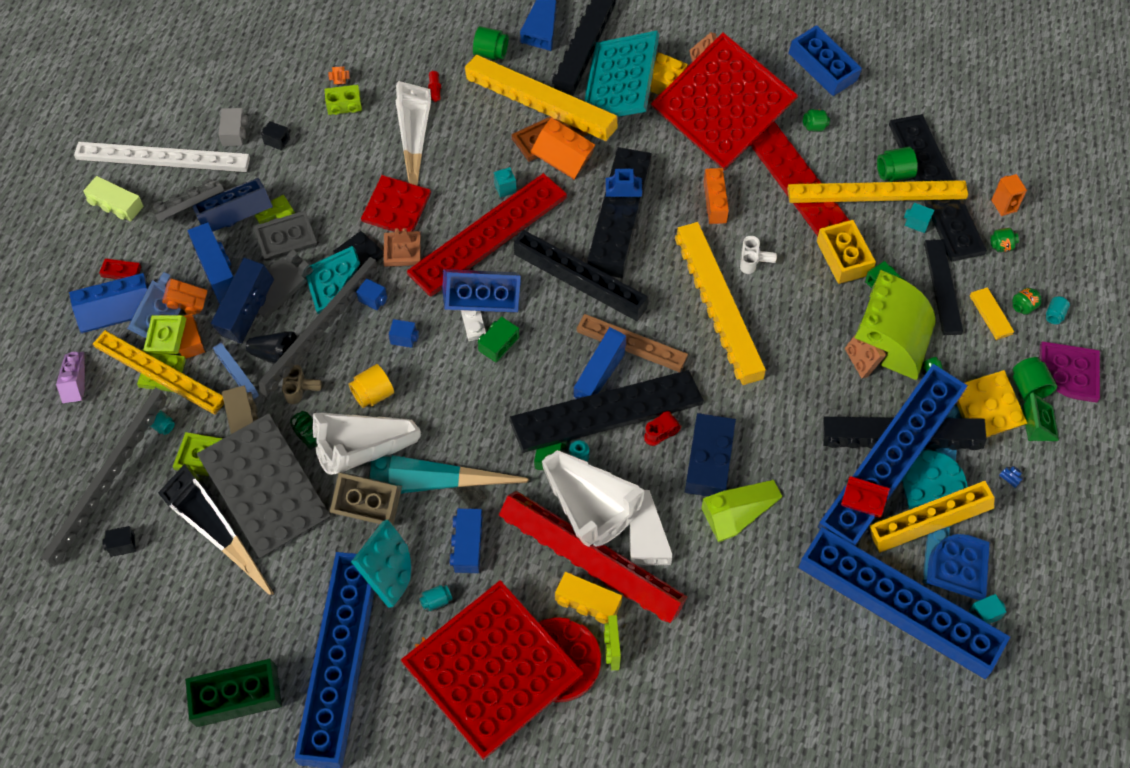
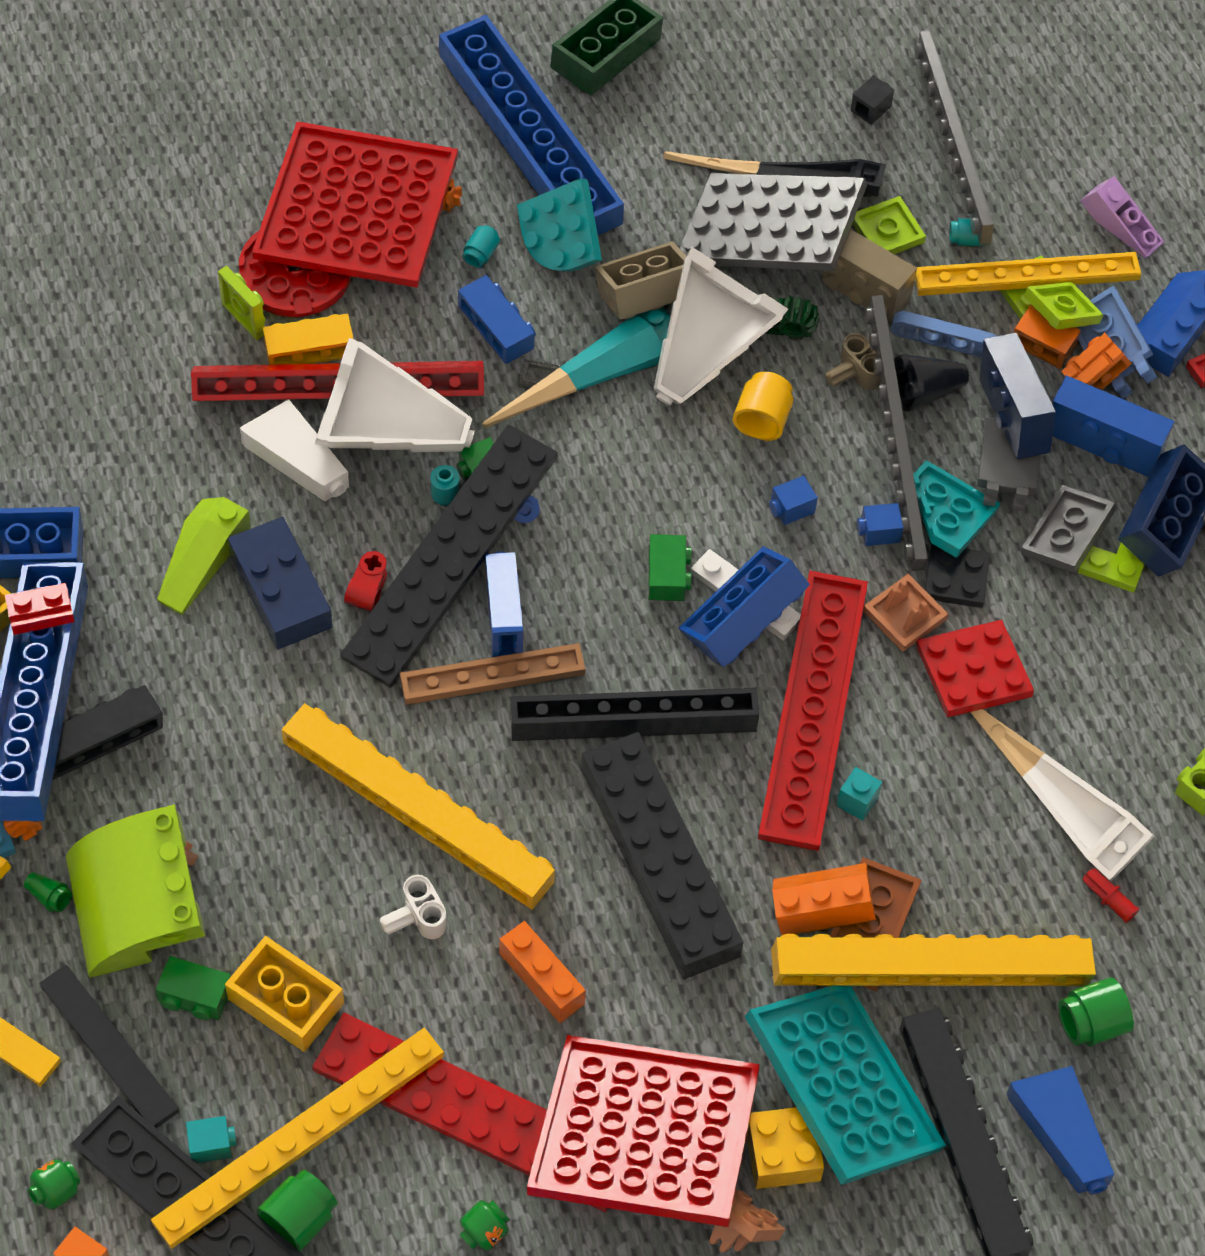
camera: 140 degrees right, 0 degrees up
(623, 184) = (671, 856): blue brick -> none

